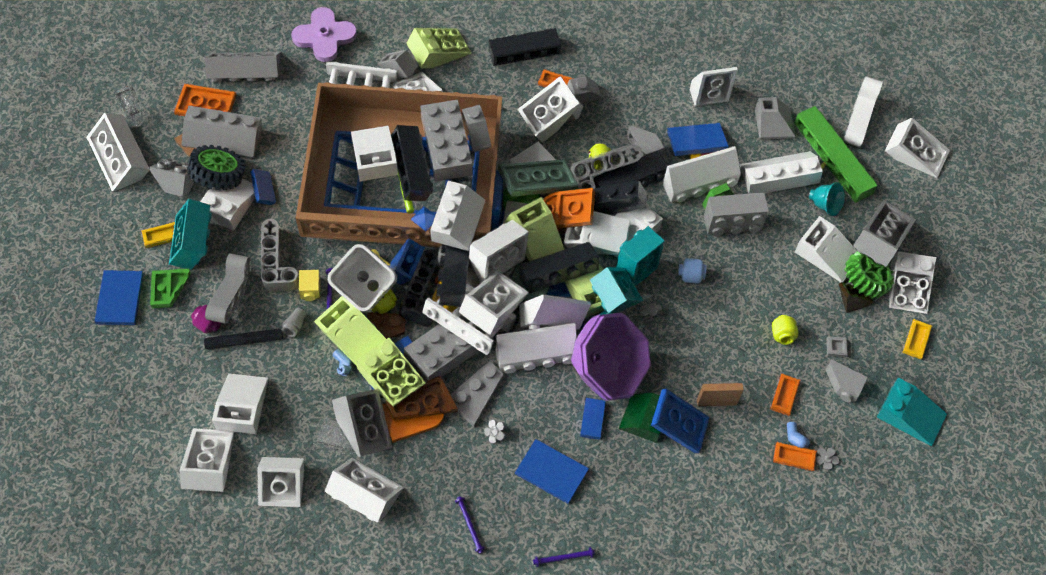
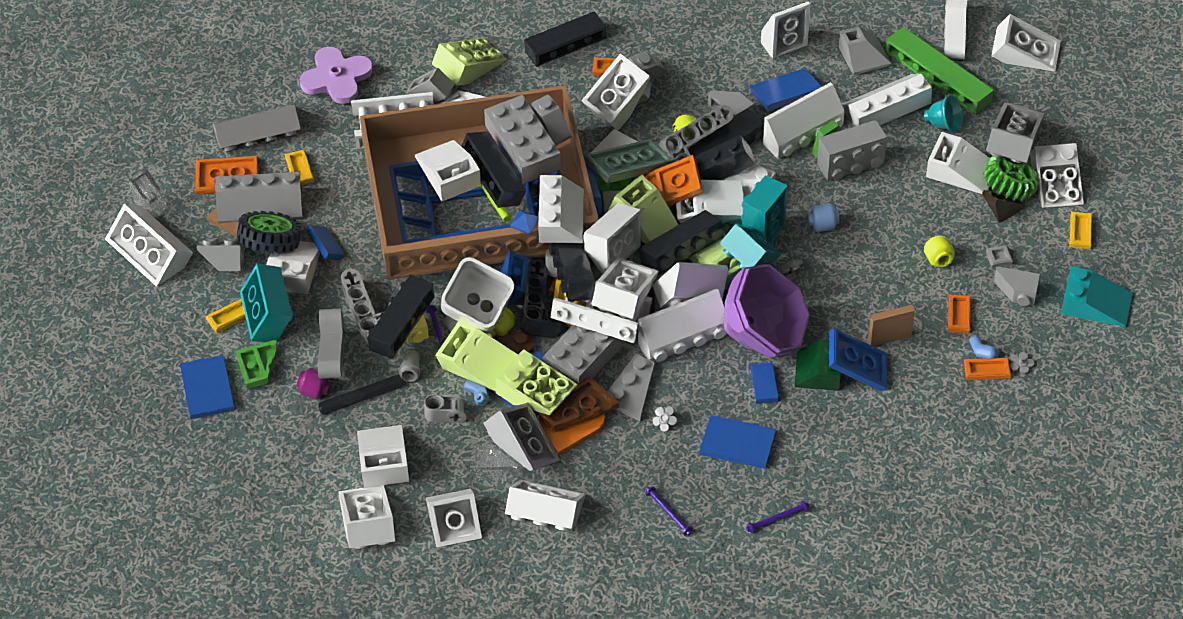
camera: 10 degrees left, 10 degrees down
(267, 111) = (298, 162): none -> yellow tile
(296, 277) = (400, 316): none -> black brick
(313, 373) = (444, 408): none -> light grey piece

